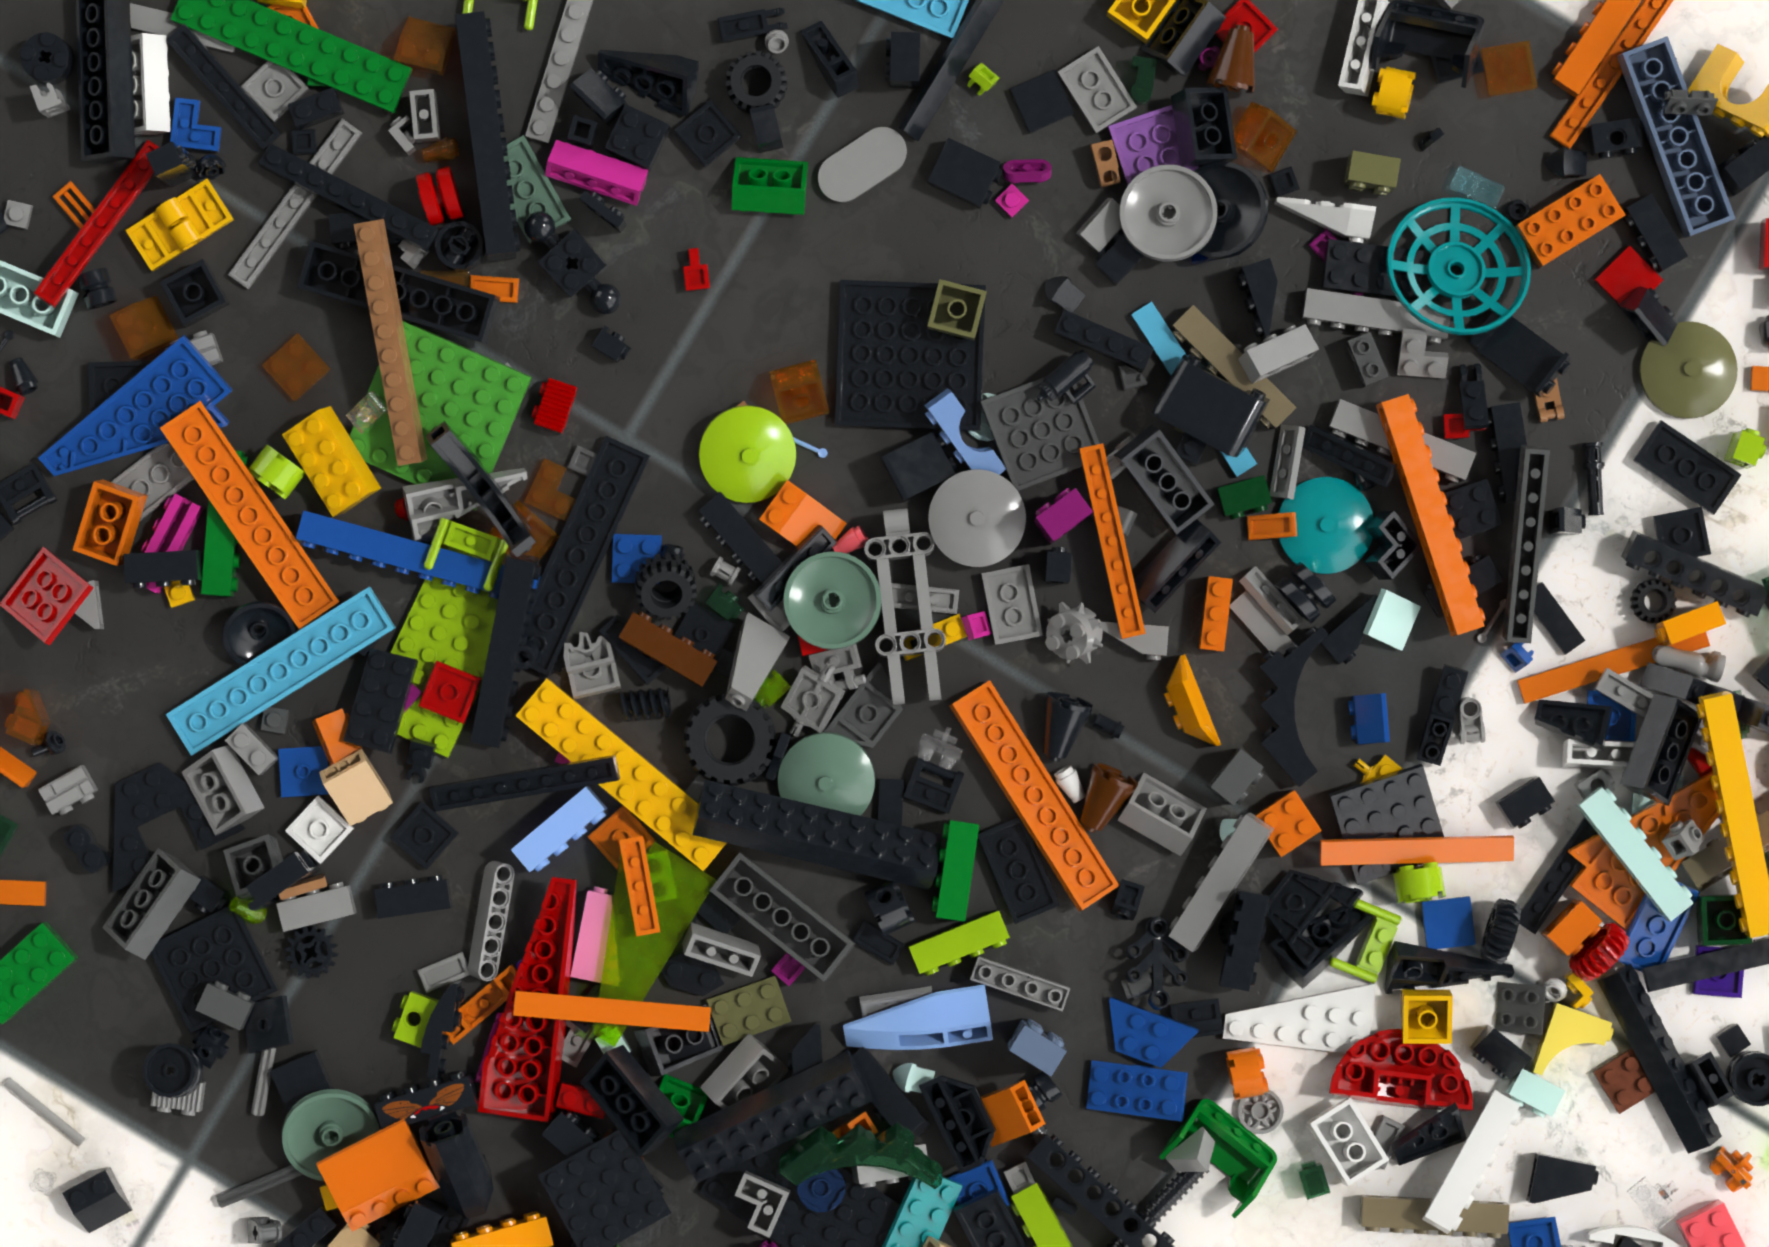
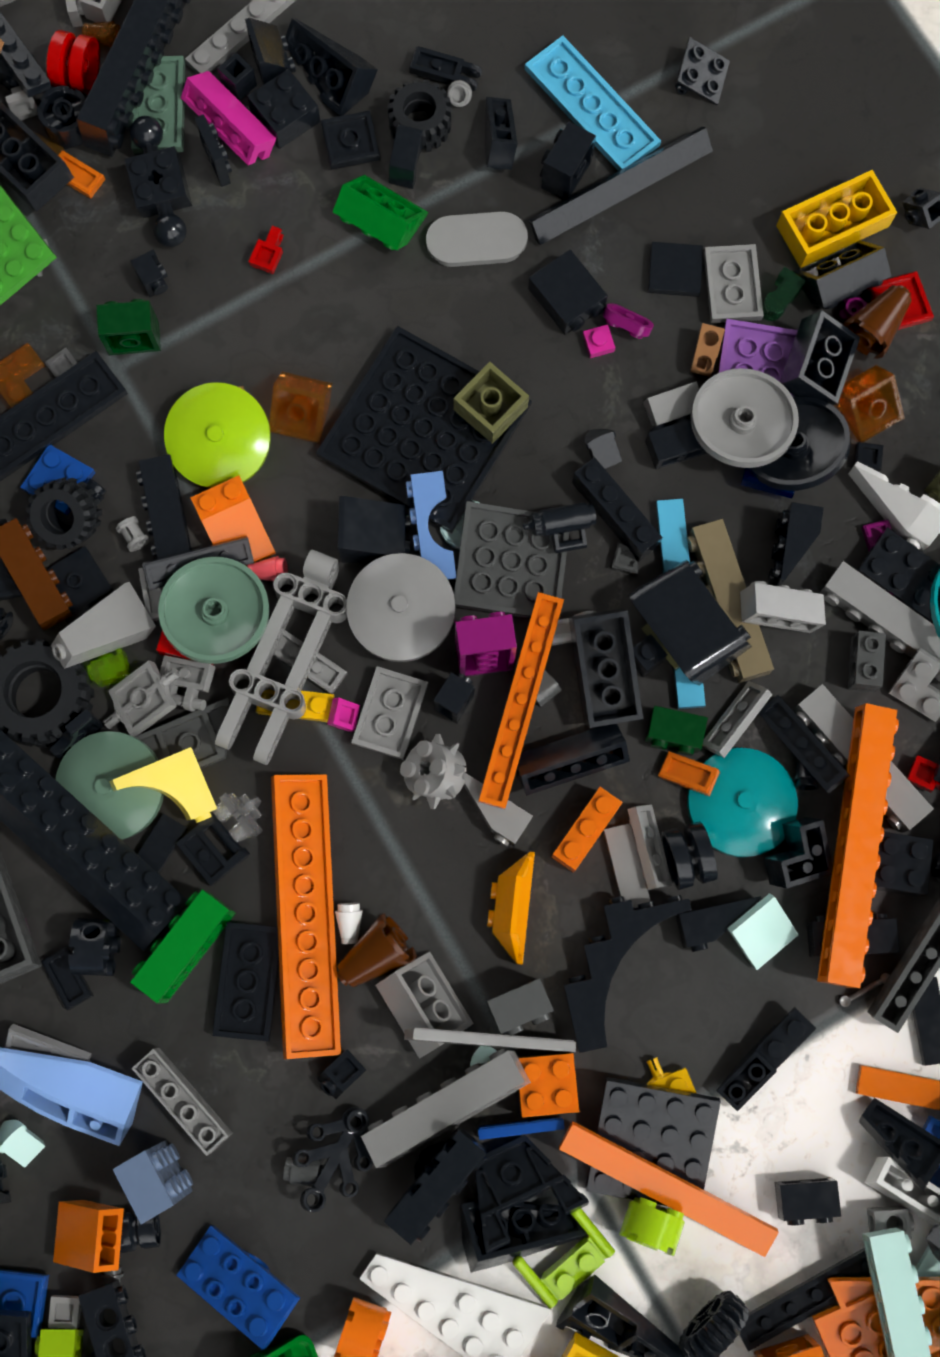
camera: 20 degrees right, 10 degrees down
(555, 405) = (66, 300): red brick -> none
(624, 402) = (128, 327): none -> dark green brick
(725, 603) = (113, 562): clear green brick -> none
(822, 453) = (290, 475): light blue hinge -> none
(878, 746) = (176, 778): none -> light yellow arch
(958, 942) = (145, 1023): lime brick -> none
(961, 1119) = (34, 1215): black wedge -> none
(984, 77) = (632, 219): lime tile -> none
(1062, 723) = (374, 856): black cone -> none
(1108, 726) = (419, 884): black pin -> none
(1147, 1034) = (283, 1230): blue wing -> none
(1199, 1014) = (343, 1242): black plate -> none
(1227, 813) = (490, 1040): none -> light grey tile
(1284, 865) = (520, 1127): none -> blue tile
(1369, 718) = (689, 1021): blue slope -> none
(1448, 922) = (661, 1286): blue tile -> none
(1471, 722) = (791, 1083): light grey piece -> none
(1517, 656) = (873, 1039): blue tile -> none

